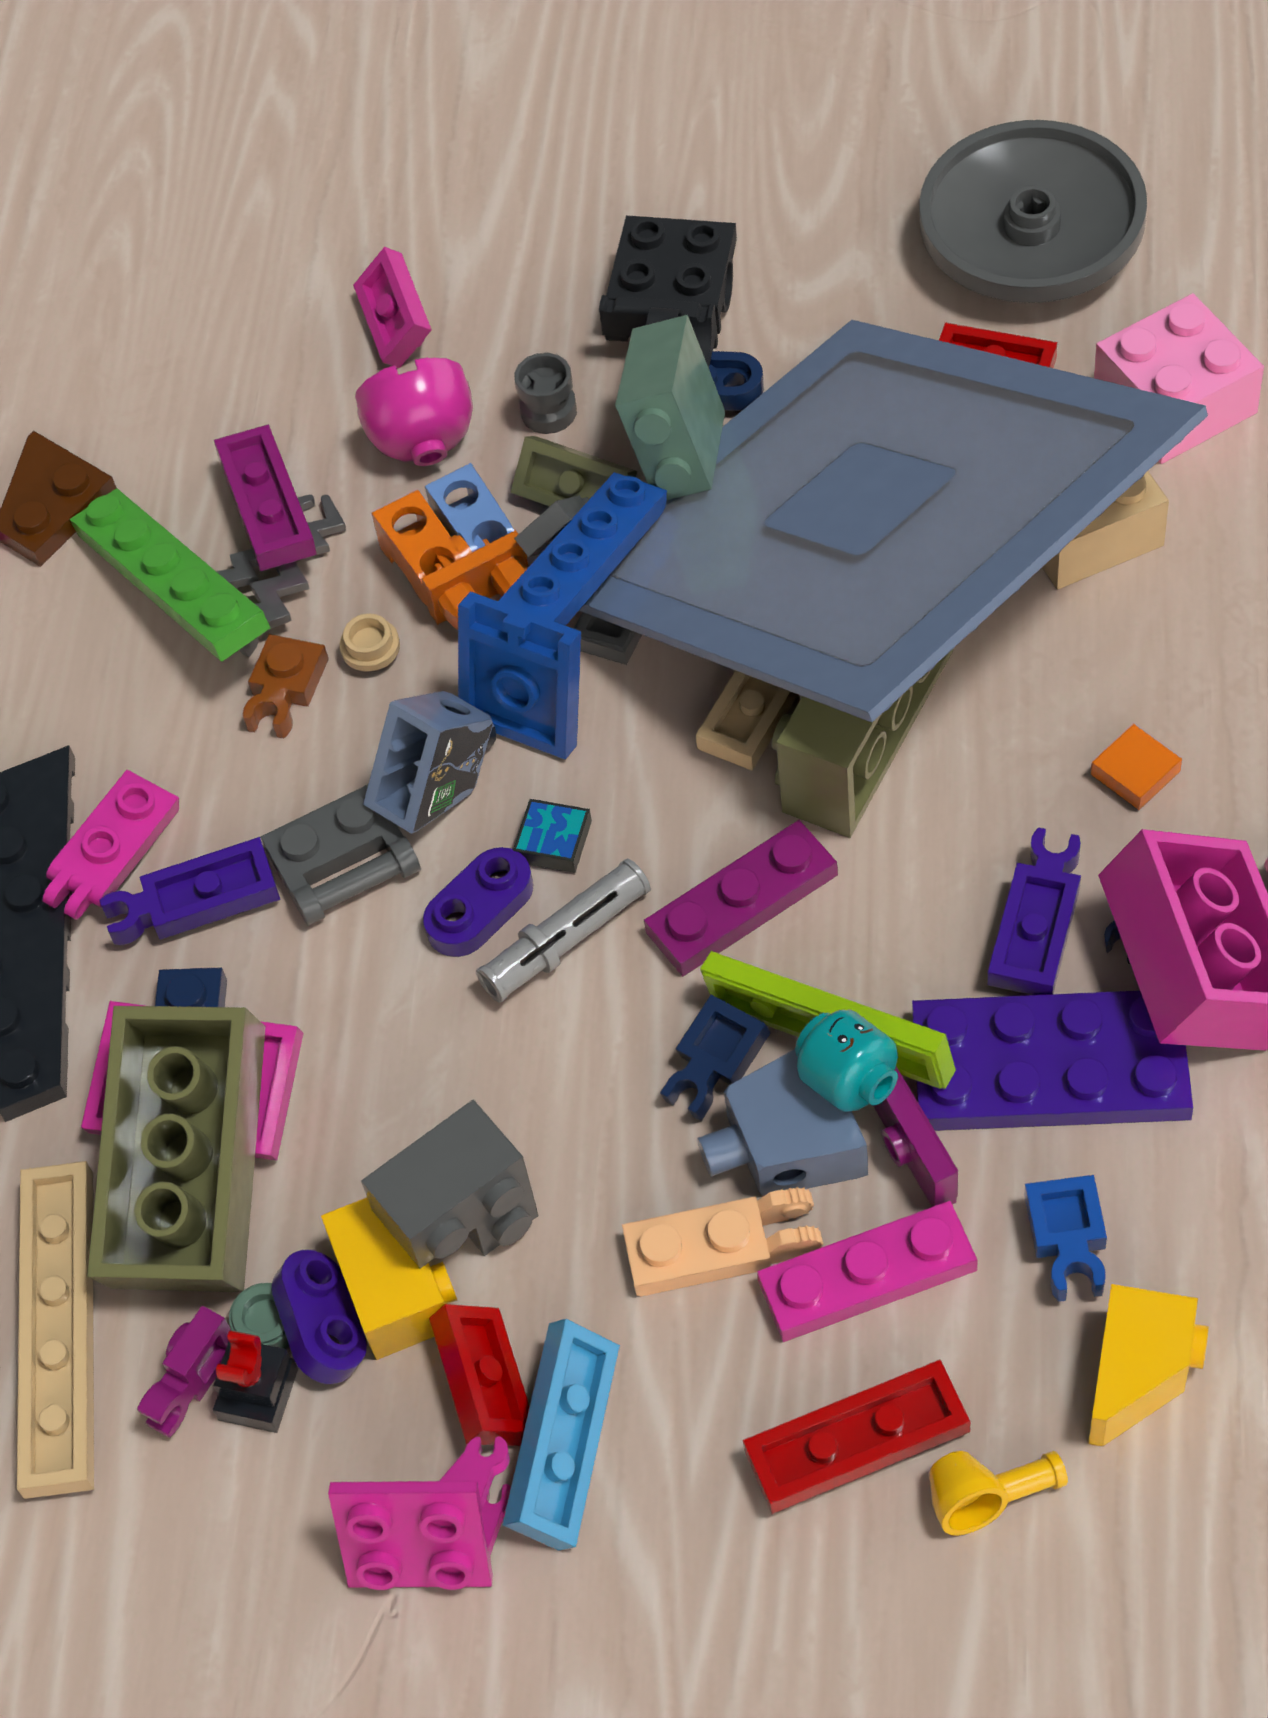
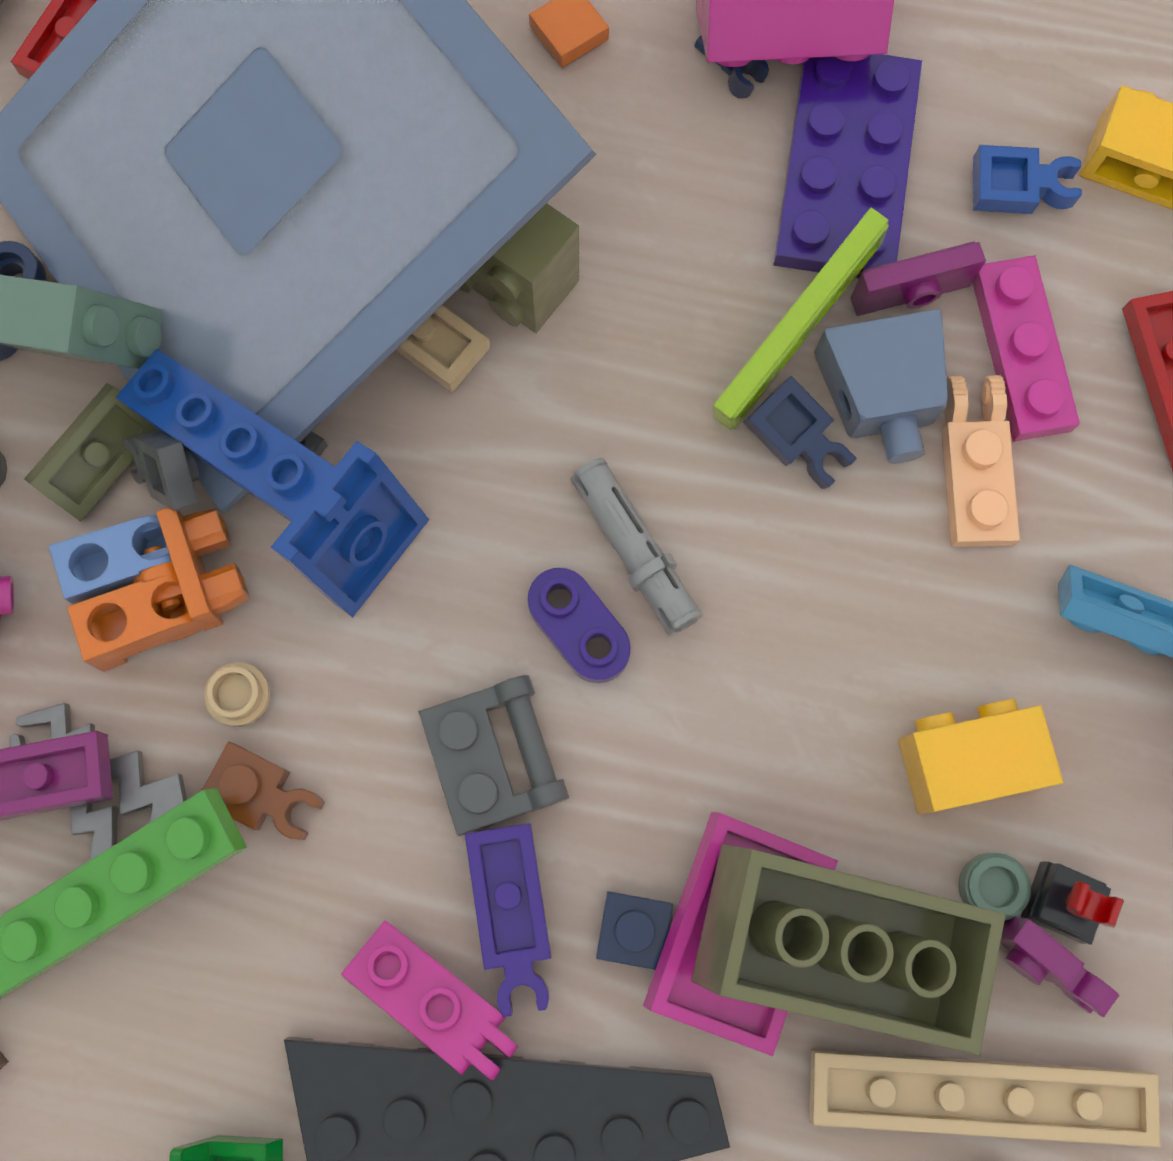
camera: 90 degrees left, 20 degrees up
(313, 1311) = (1015, 831): dark purple plate -> none
(427, 758) = (409, 616): sand blue torso -> none
(452, 1187) = (943, 677): dark grey brick -> none
(481, 1373) = (1094, 685): red plate -> none
(553, 835) = (519, 543): tile -> none
(741, 897) = (629, 383): magenta plate -> none
(847, 1060) = (877, 297): teal head -> none
(1036, 919) = (712, 135): dark purple plate -> none

